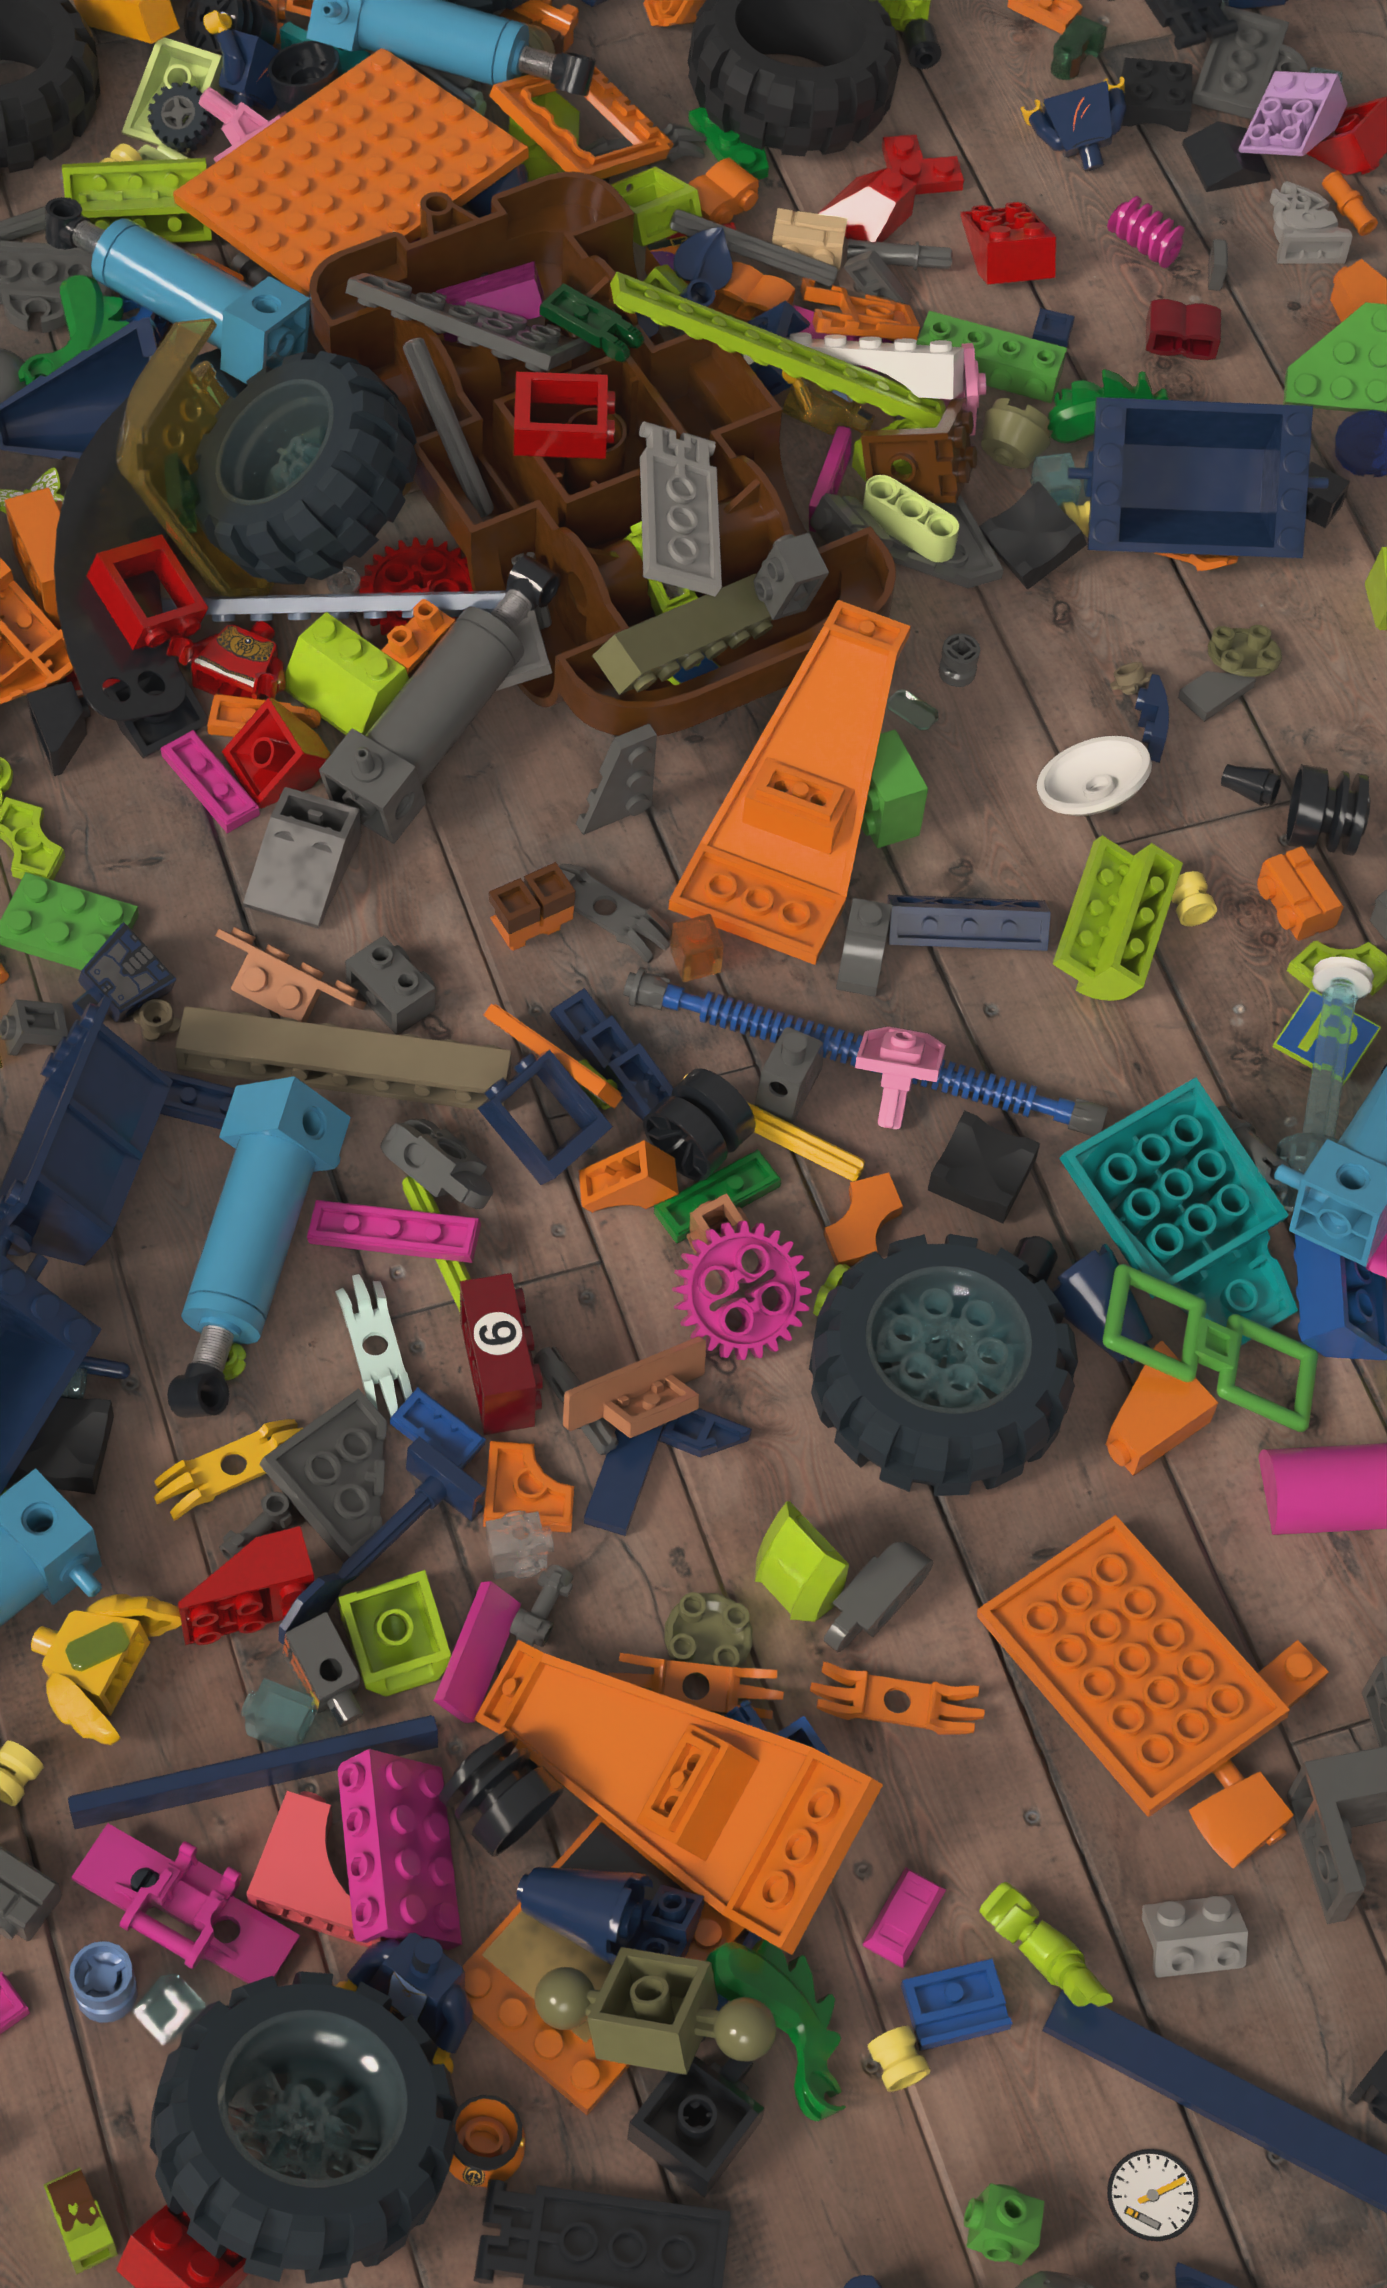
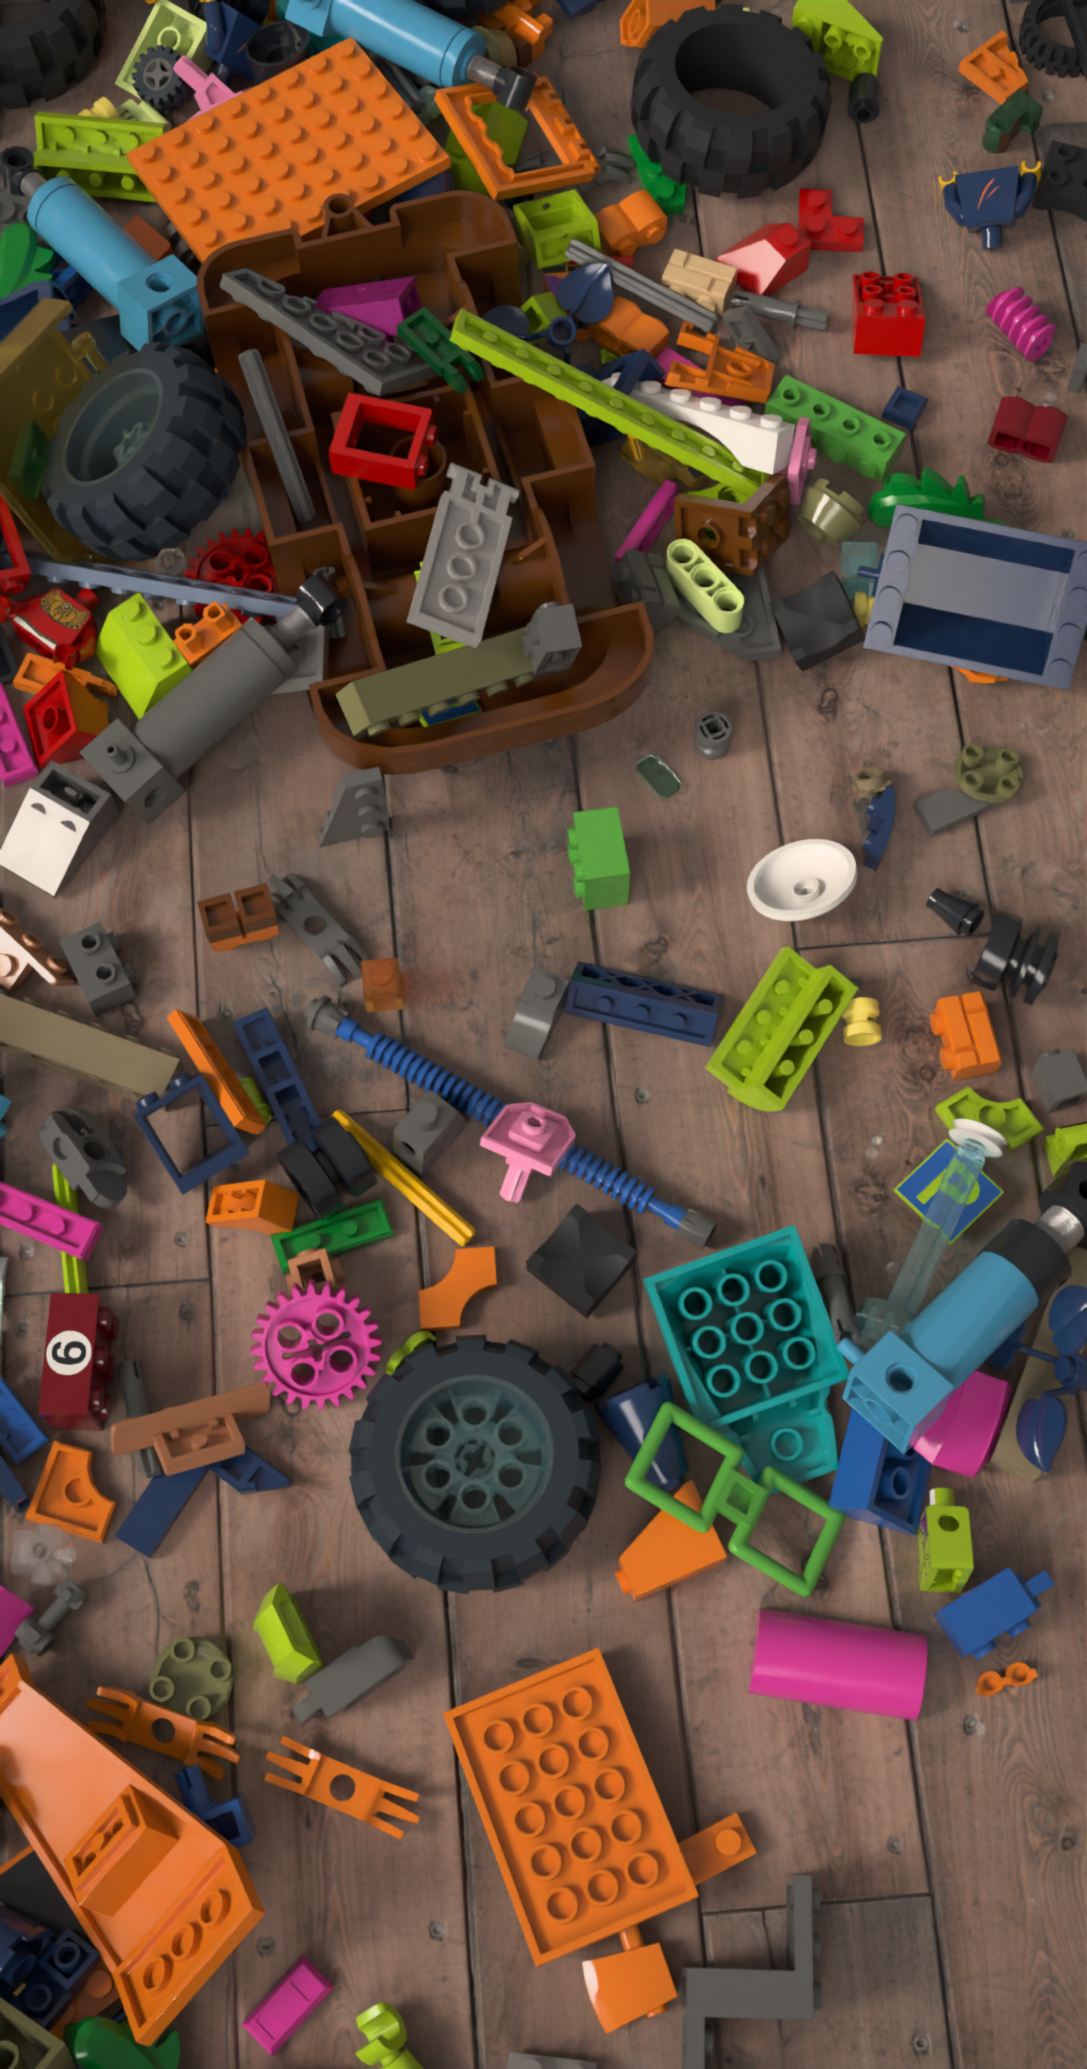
camera: 20 degrees right, 10 degrees up
(774, 858) = (471, 912): orange wing -> none

